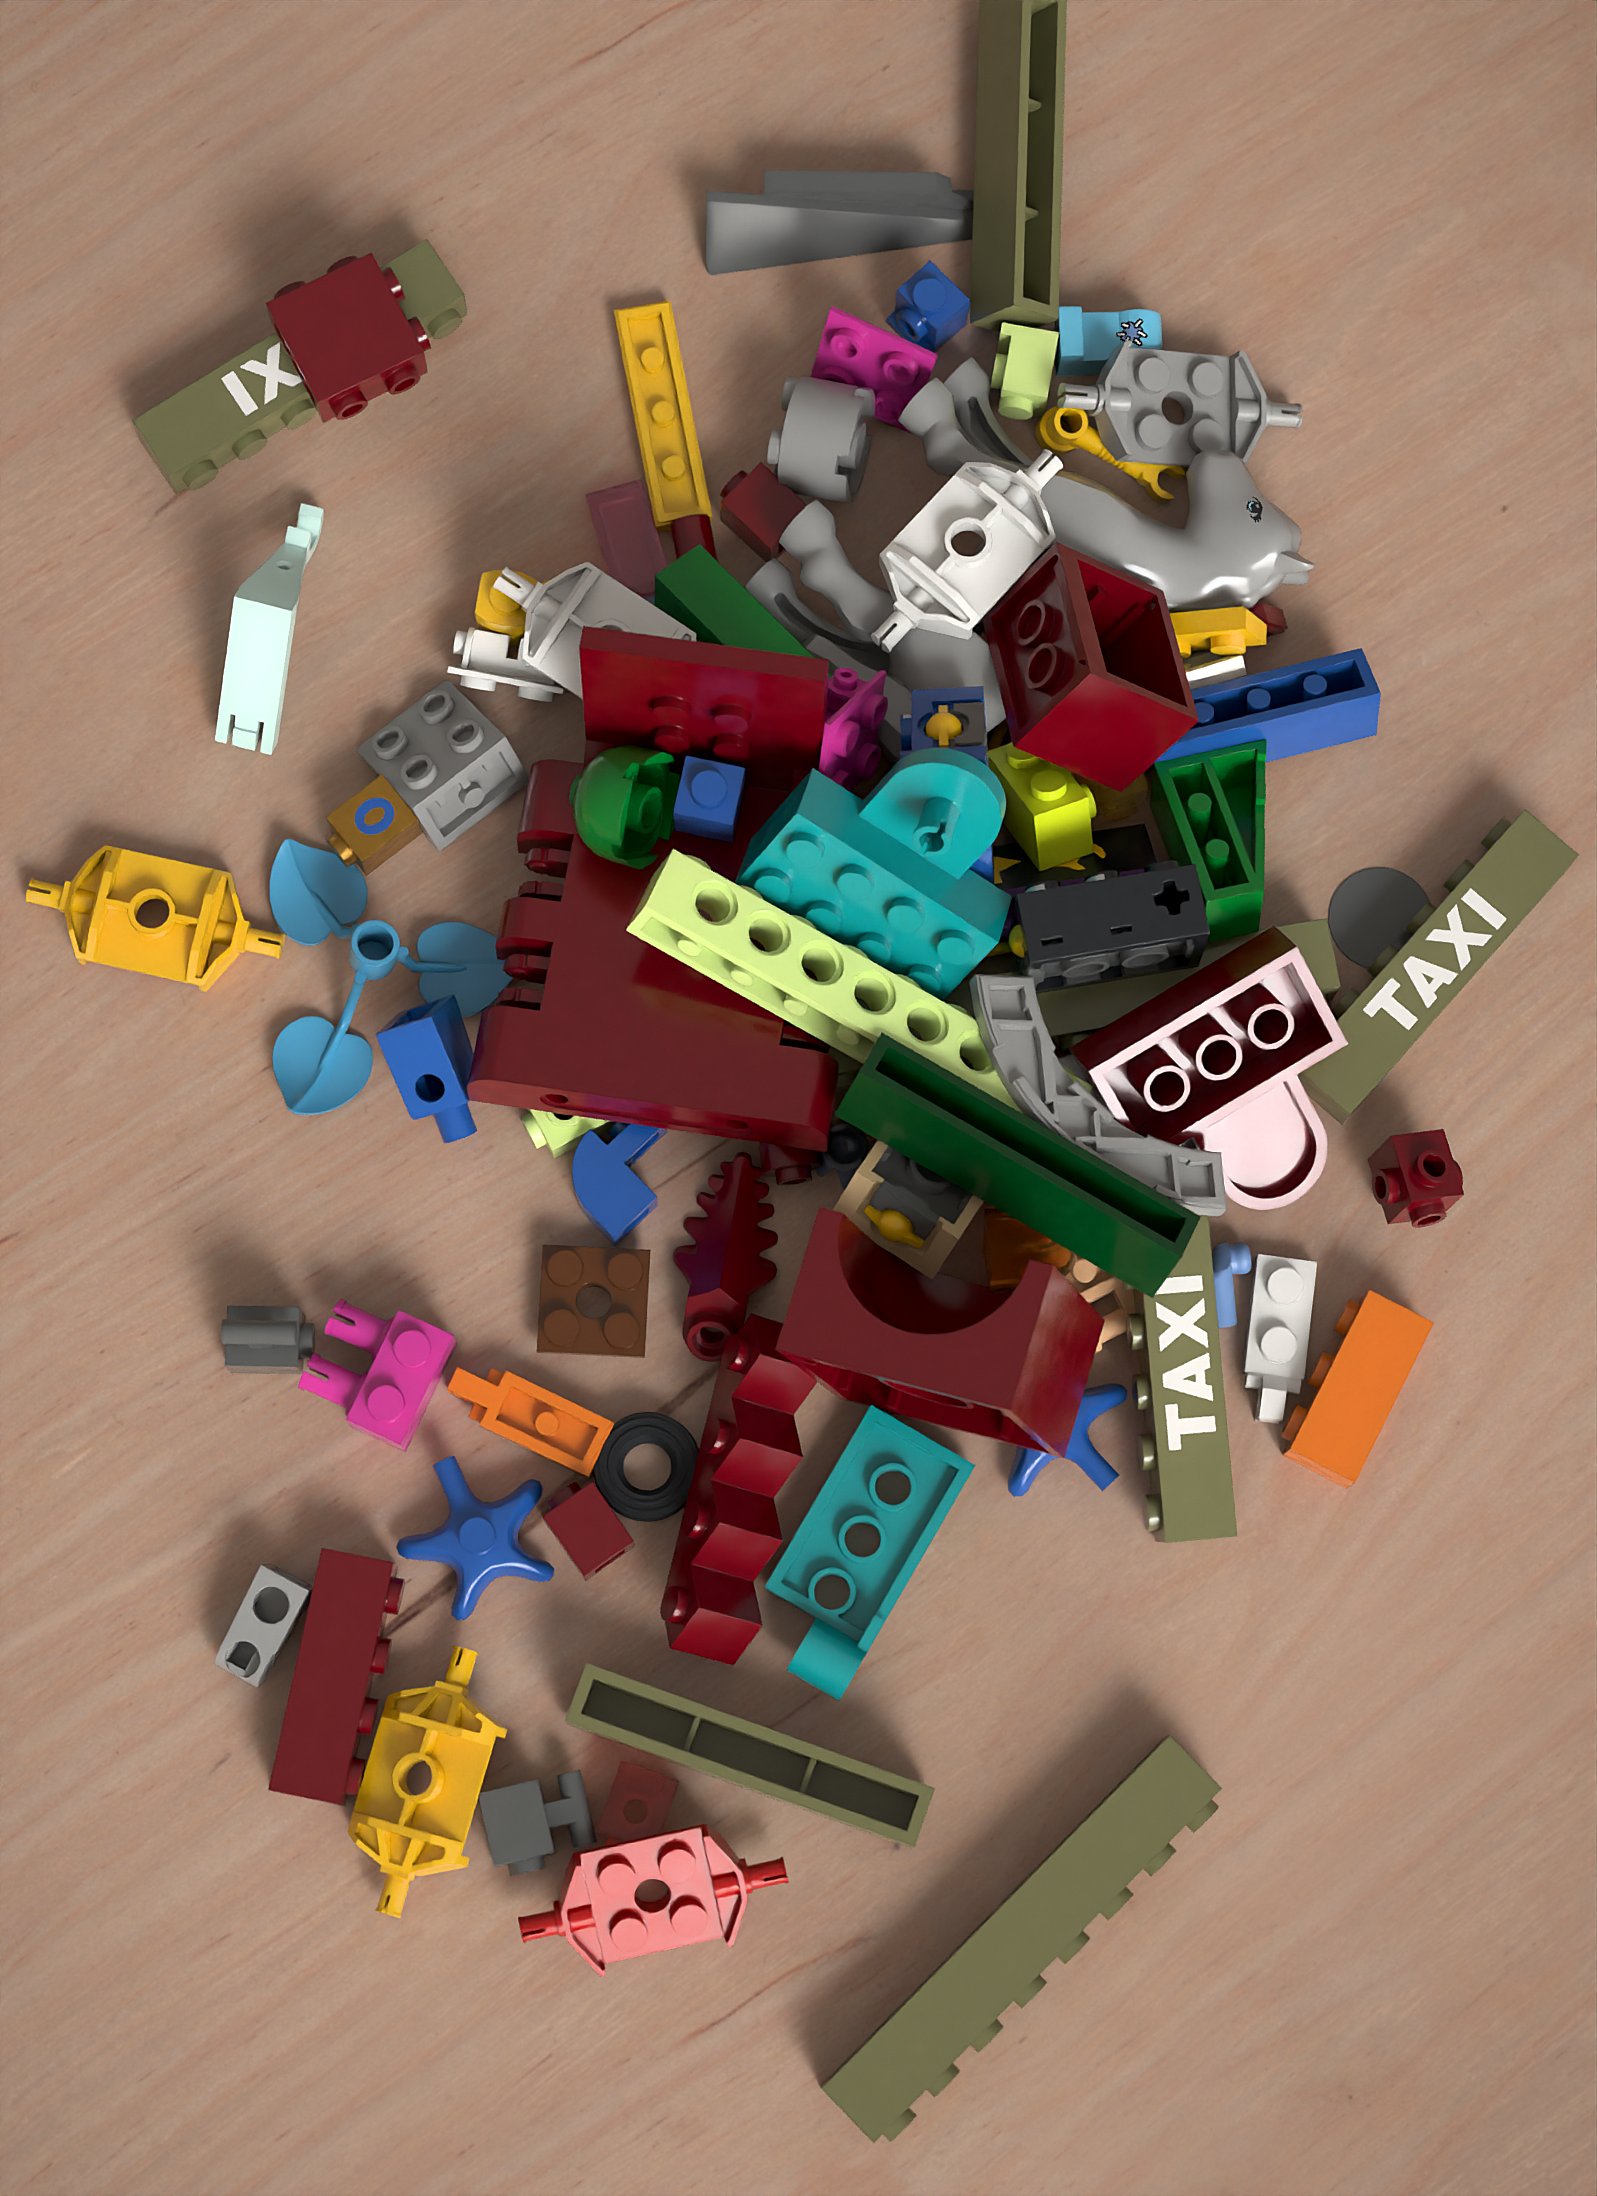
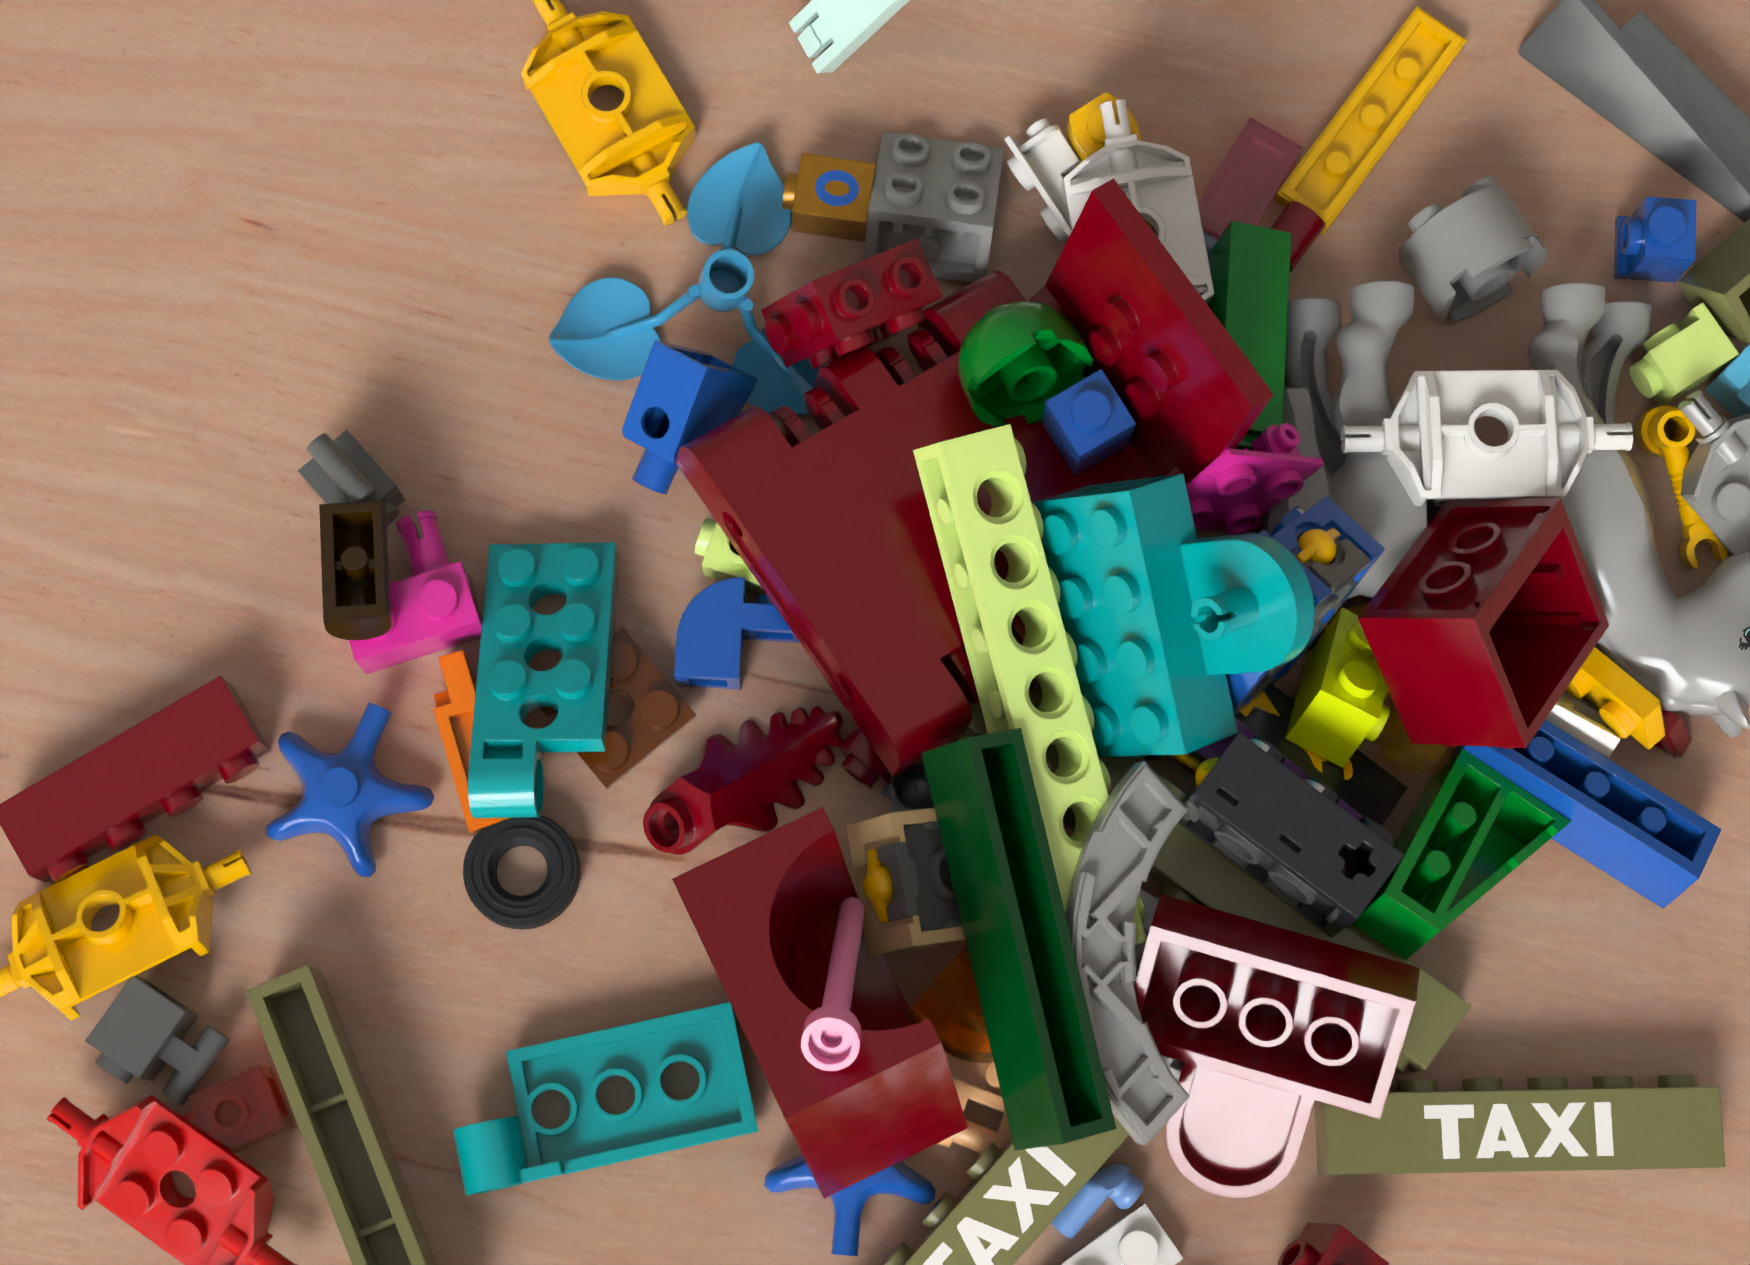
camera: 50 degrees right, 0 degrees up
(263, 1624) = (127, 686): light grey leg -> none
(342, 1382) = (355, 569): none -> dark brown brick
(472, 882) = (852, 307): none -> dark red brick
(519, 1357) = (505, 754): none -> teal hinge
(587, 1528) = (426, 868): dark red brick -> none
(730, 1507) = (540, 969): dark red brick -> none
(759, 510) = (1366, 252): dark red brick -> none
(873, 359) = (1571, 227): dark pink hinge -> none
(984, 1325) = (832, 1031): none -> bright pink piece
(1373, 912) = (1516, 1040): dark grey sticker -> none

